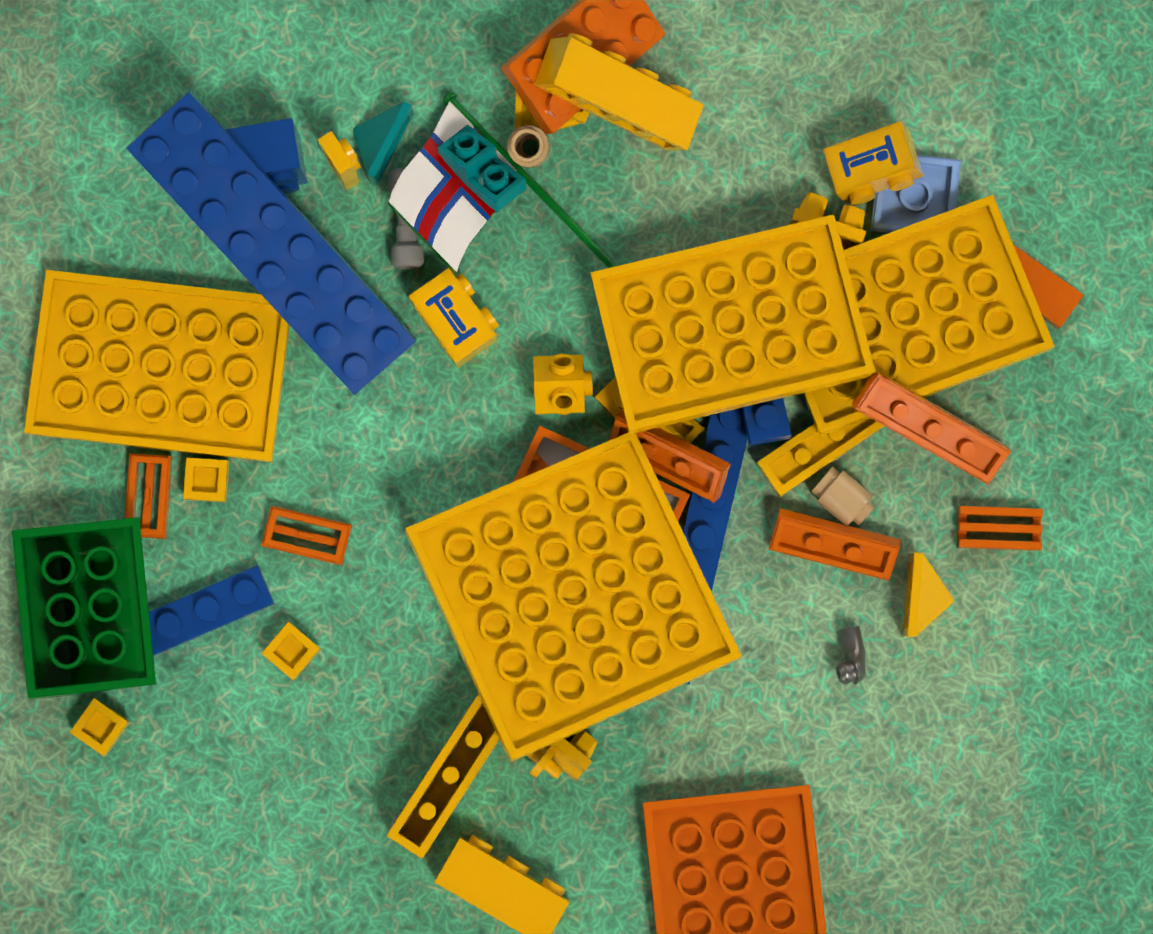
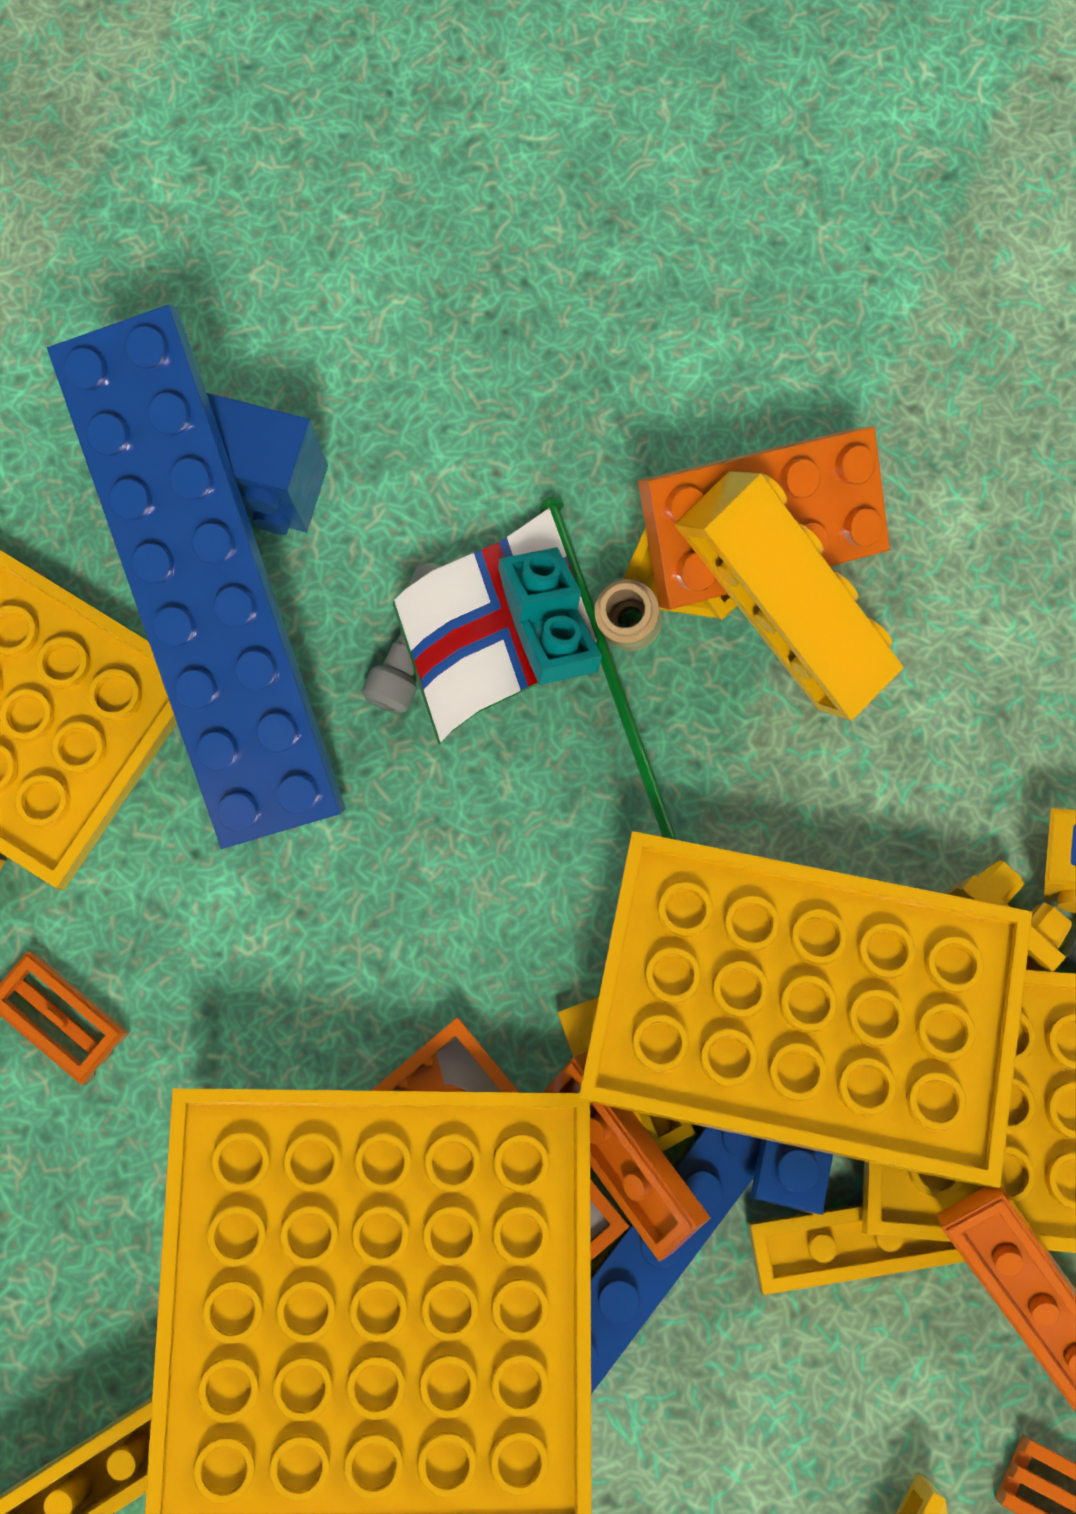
camera: 30 degrees right, 5 degrees down
(341, 159) = (357, 513): yellow plate -> none
(380, 137) = (433, 515): teal slope -> none
(454, 317) = (410, 804): yellow brick -> none
(561, 384) = (515, 972): yellow brick -> none
(834, 544) = (813, 1408): orange tile -> none
(843, 497) = (857, 1341): tan brick -> none

